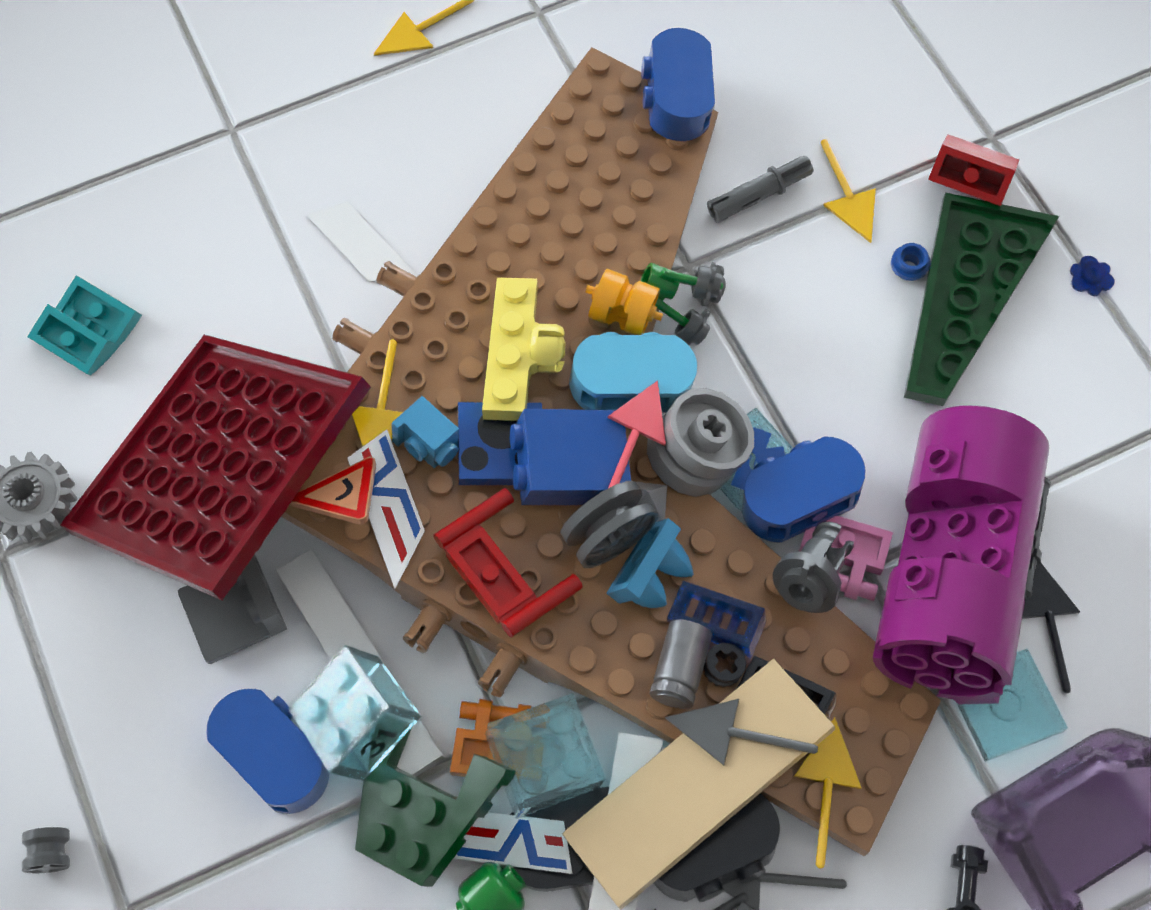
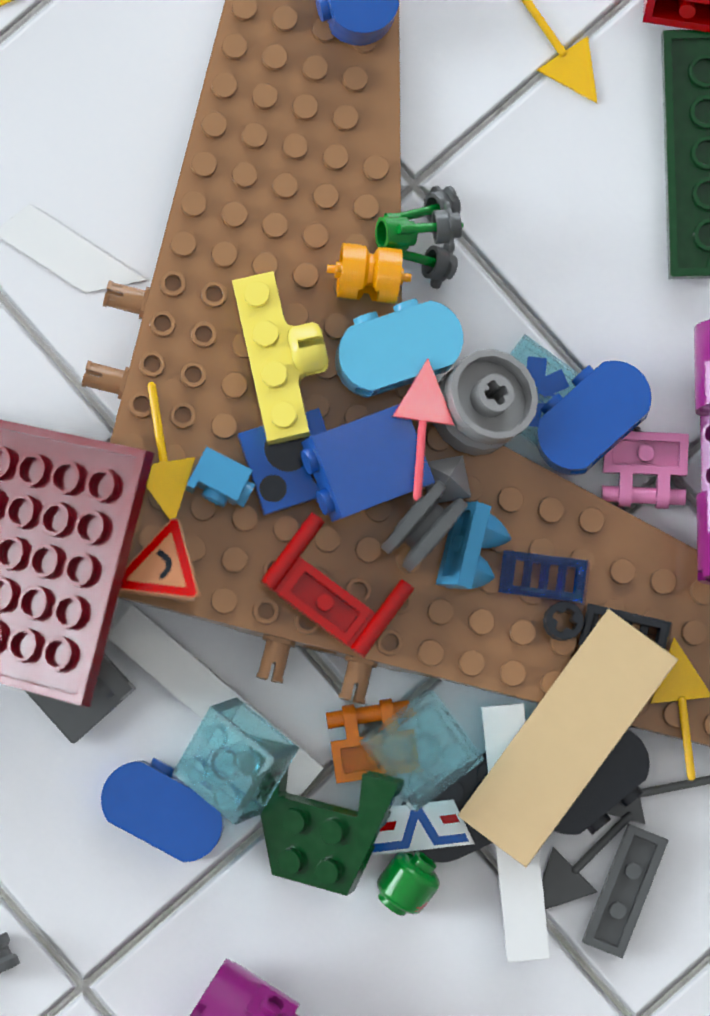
camera: 20 degrees left, 20 degrees up
(391, 507) = (215, 567): white sticker -> none
(681, 664) = (524, 635): flat silver piece -> none
(713, 728) = (569, 688): dark grey piece -> none
(759, 188) = (467, 73): dark grey axle -> none
(811, 577) = (623, 514): dark grey piece -> none
(913, 253) = (646, 108): blue plate -> none

